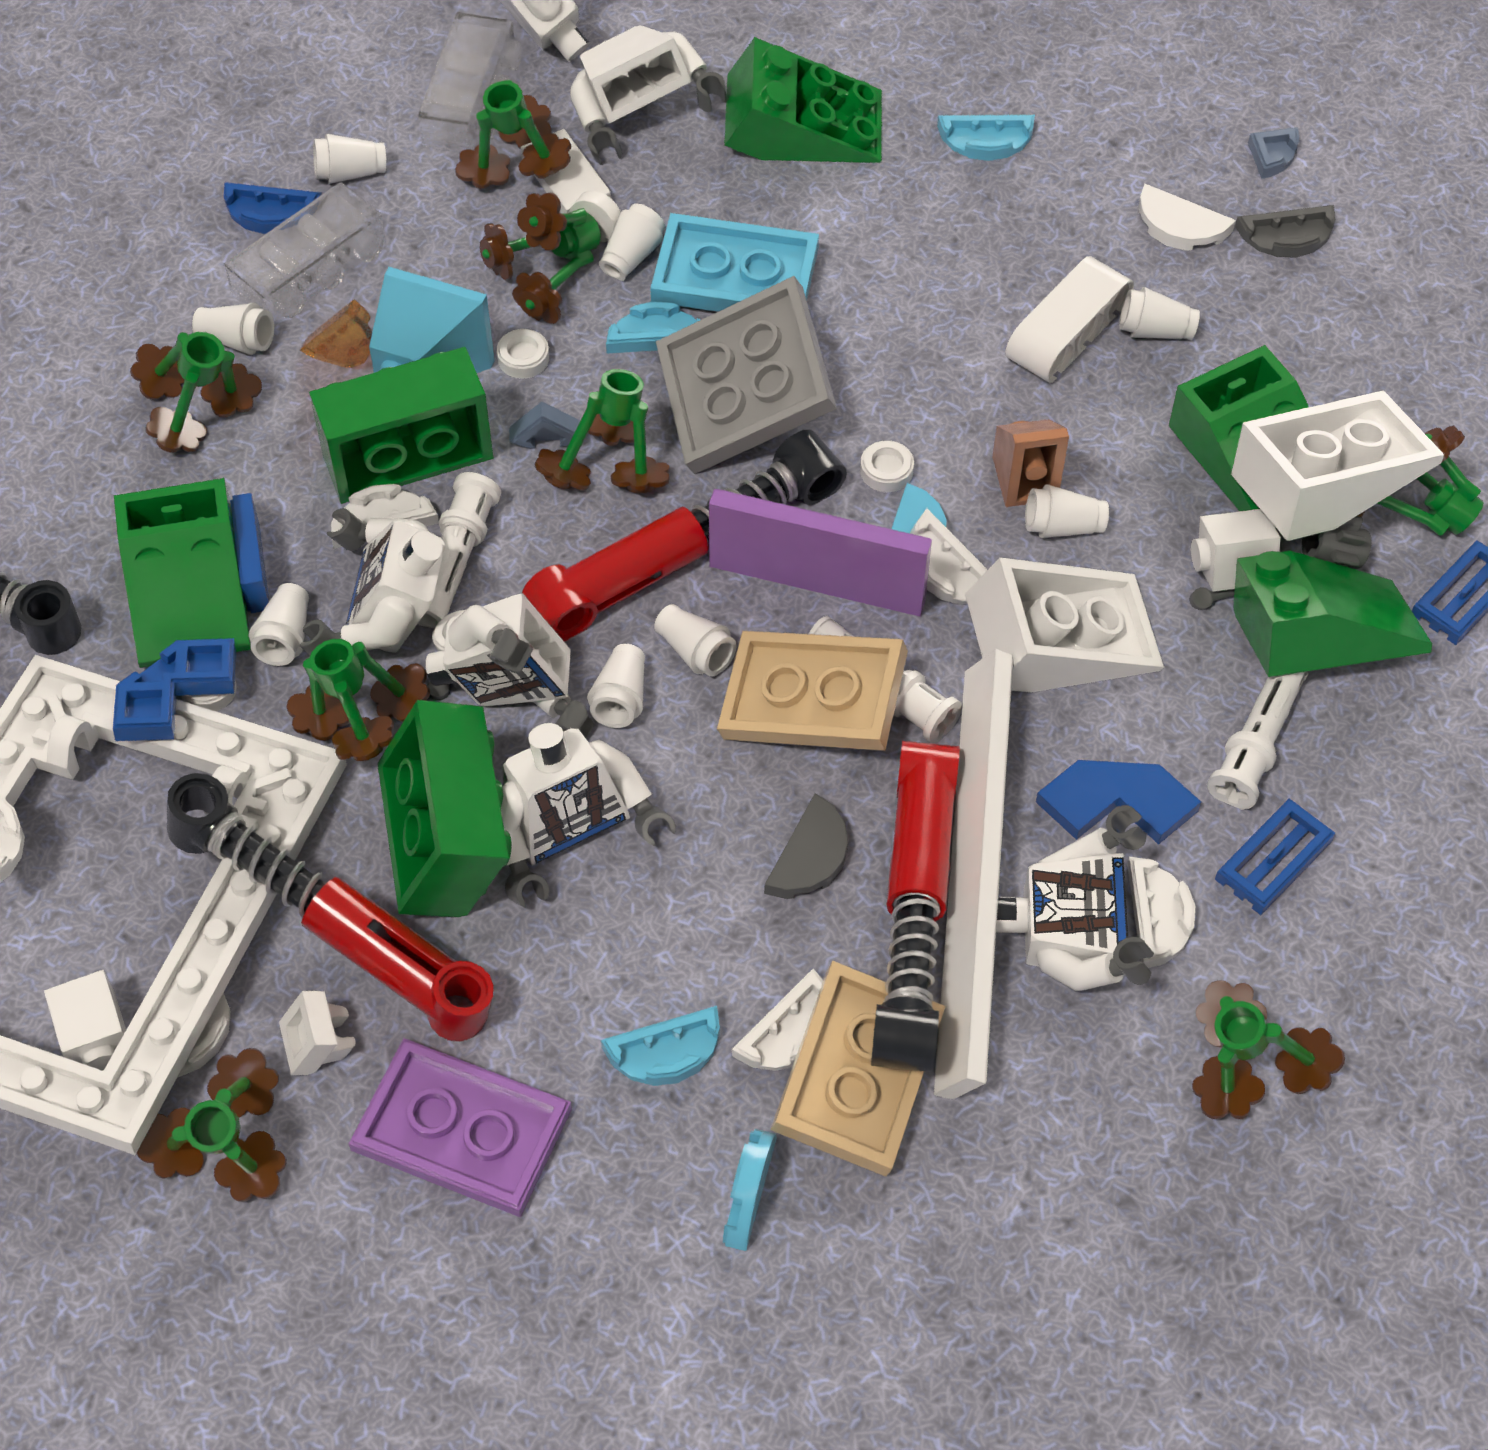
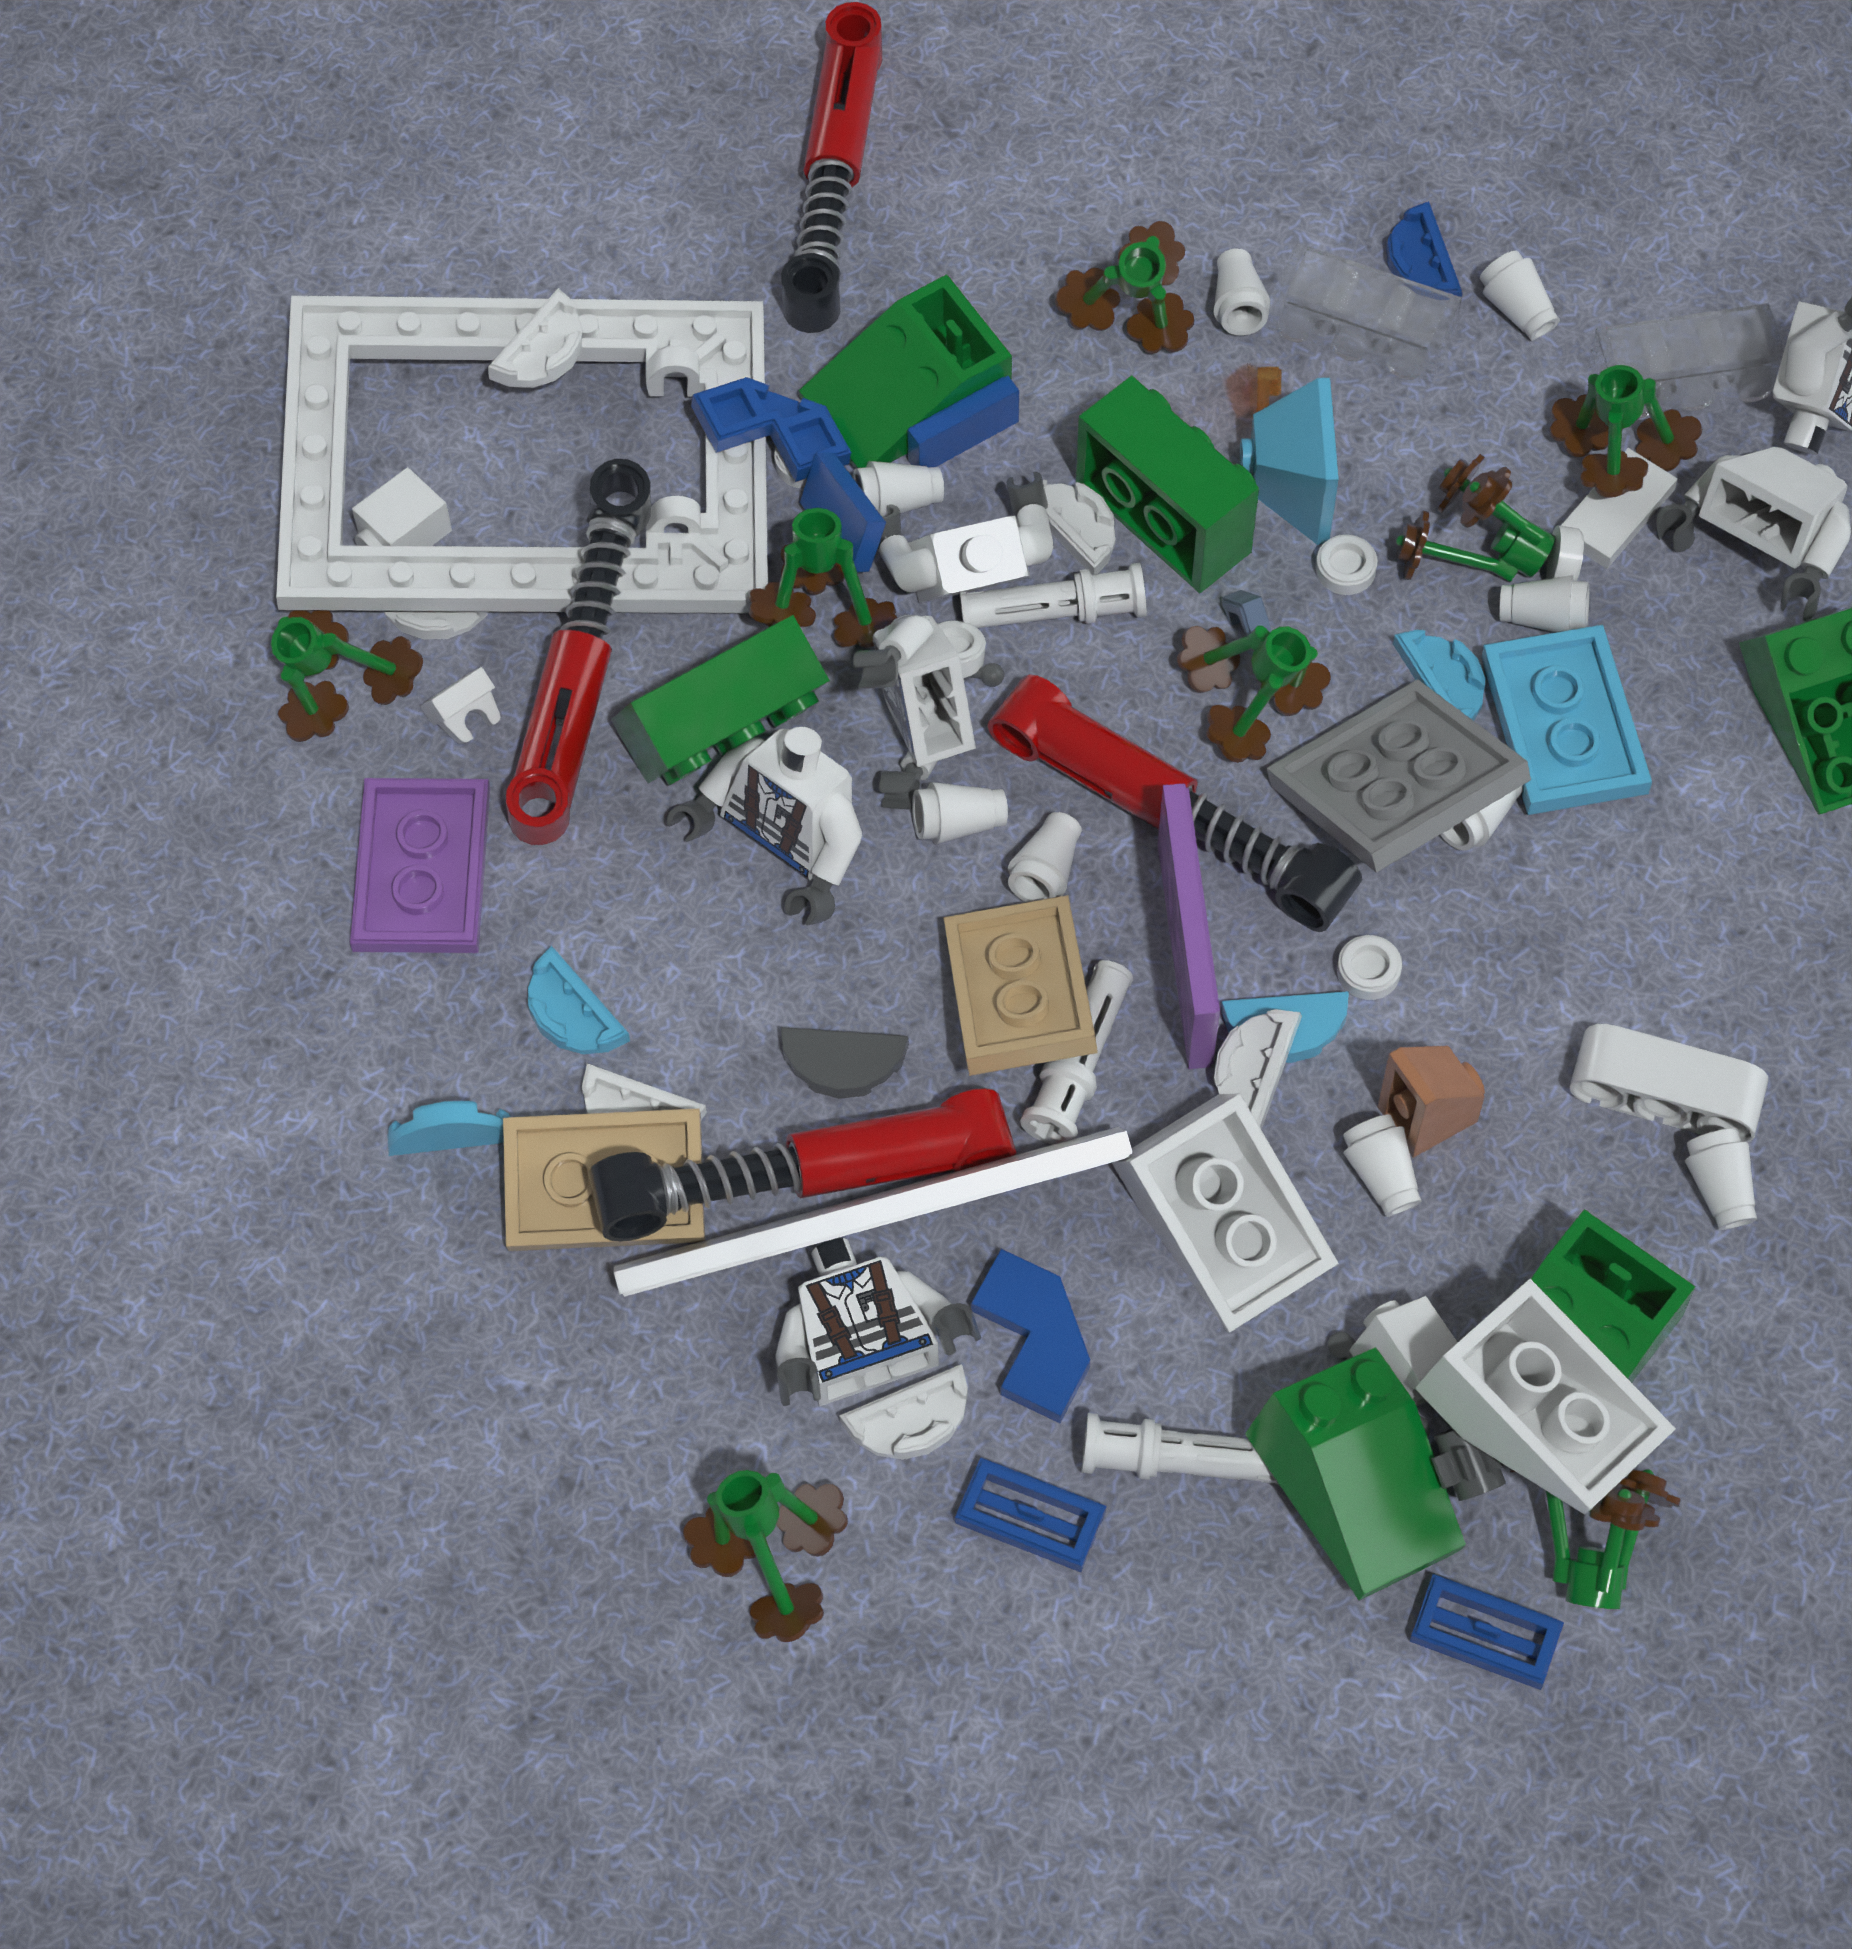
camera: 70 degrees right, 5 degrees up
(275, 664) = (834, 489): none -> blue tile

